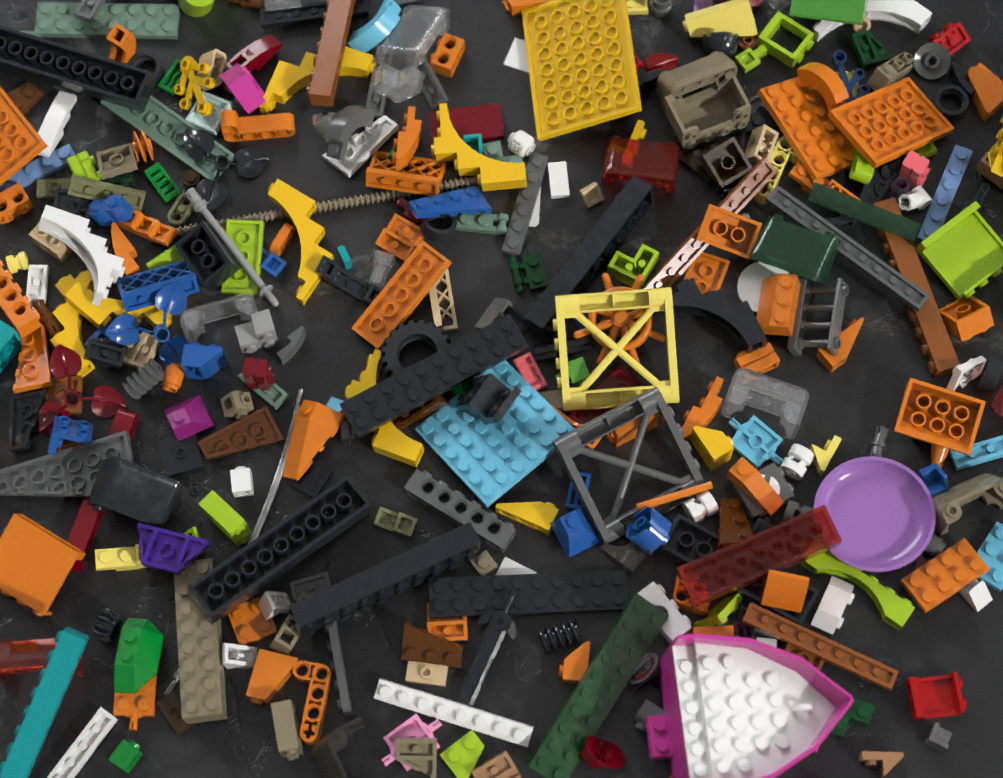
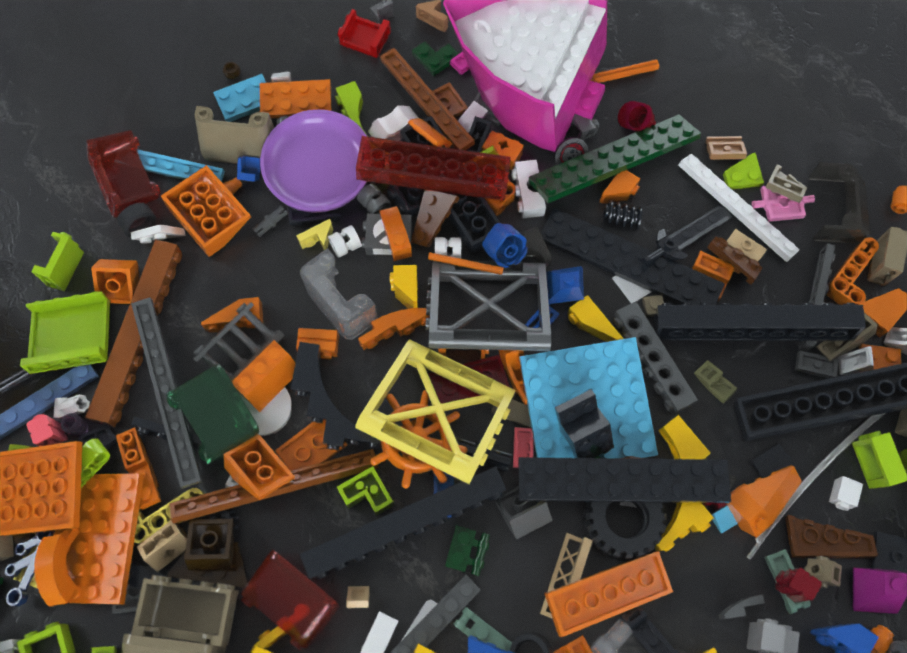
camera: 155 degrees left, 0 degrees up
(577, 372) = (480, 420): bright green brick -> none
(756, 441) = (366, 276): medium azure plate -> none
(864, 212) = (124, 417): clear green plate -> none

